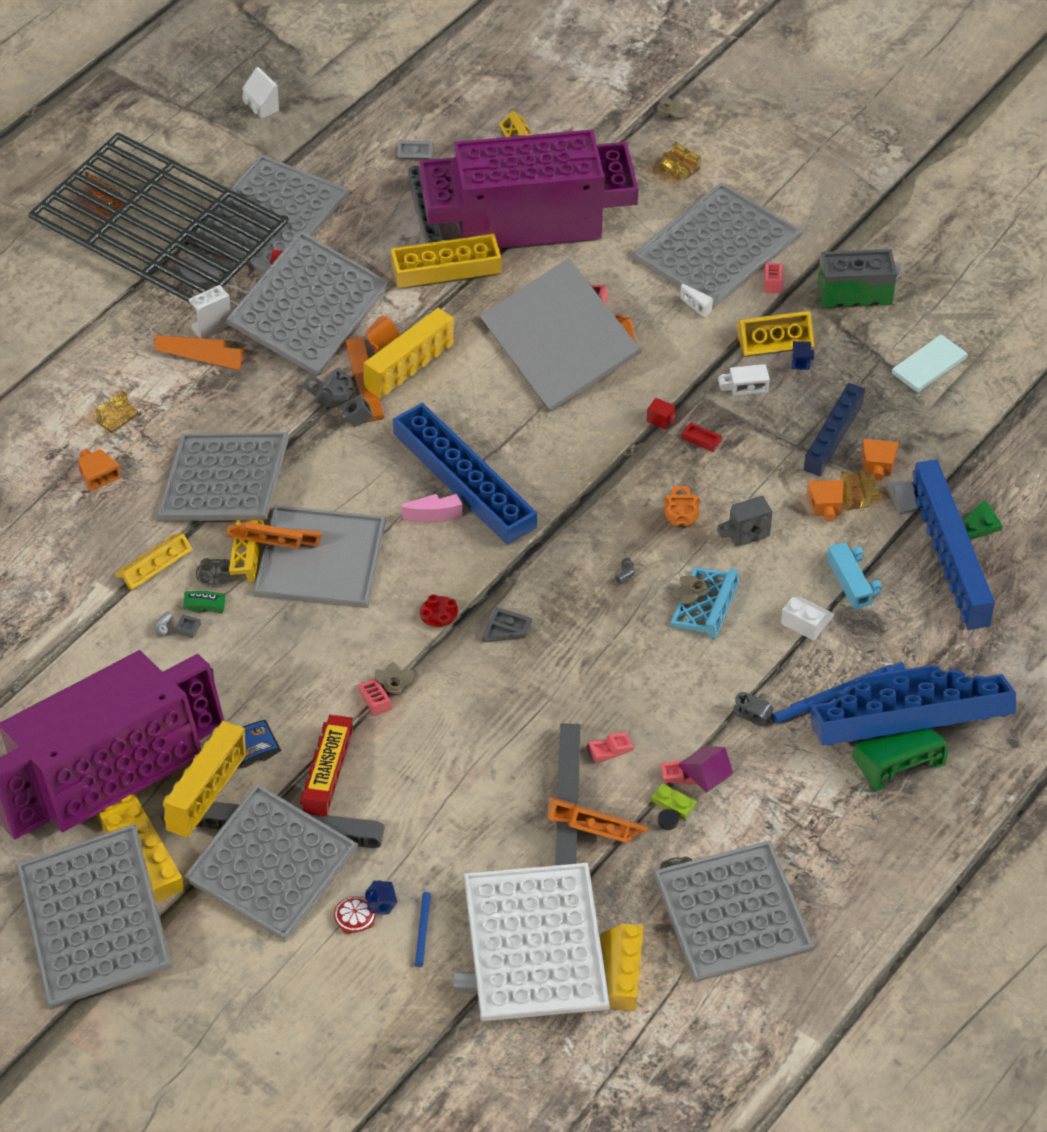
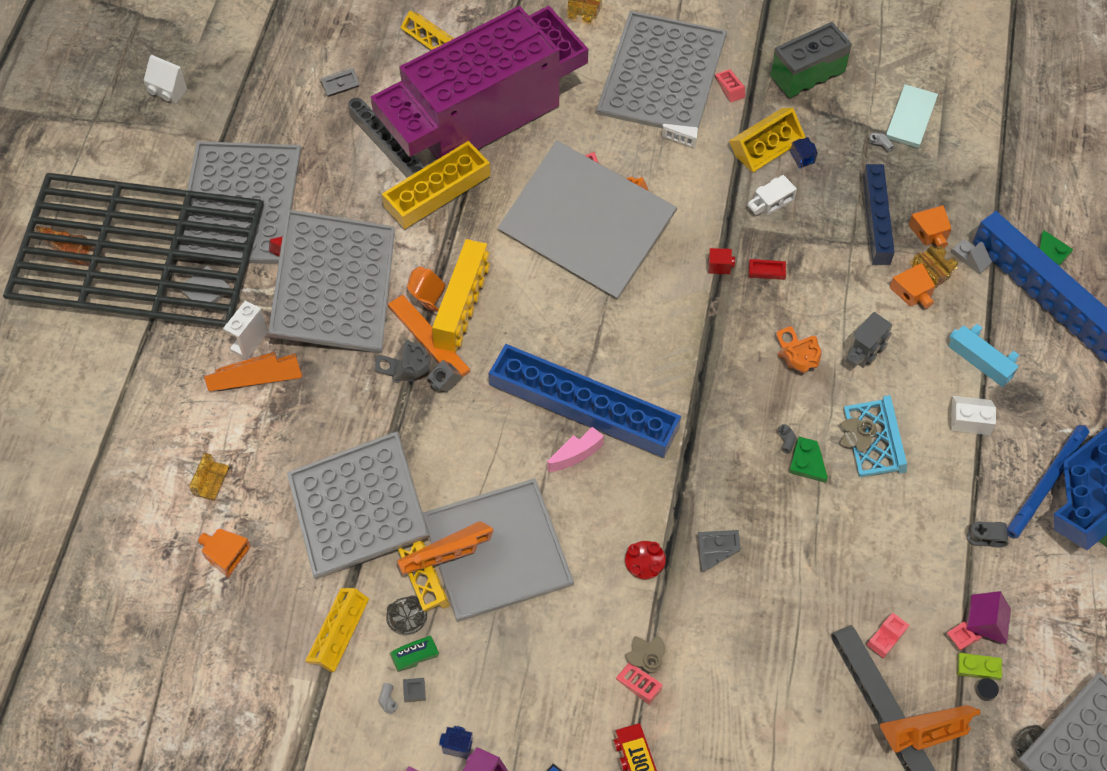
camera: 25 degrees left, 10 degrees up
(632, 595) = (808, 460): none -> green wing
(884, 372) = (882, 140): none -> light grey arm

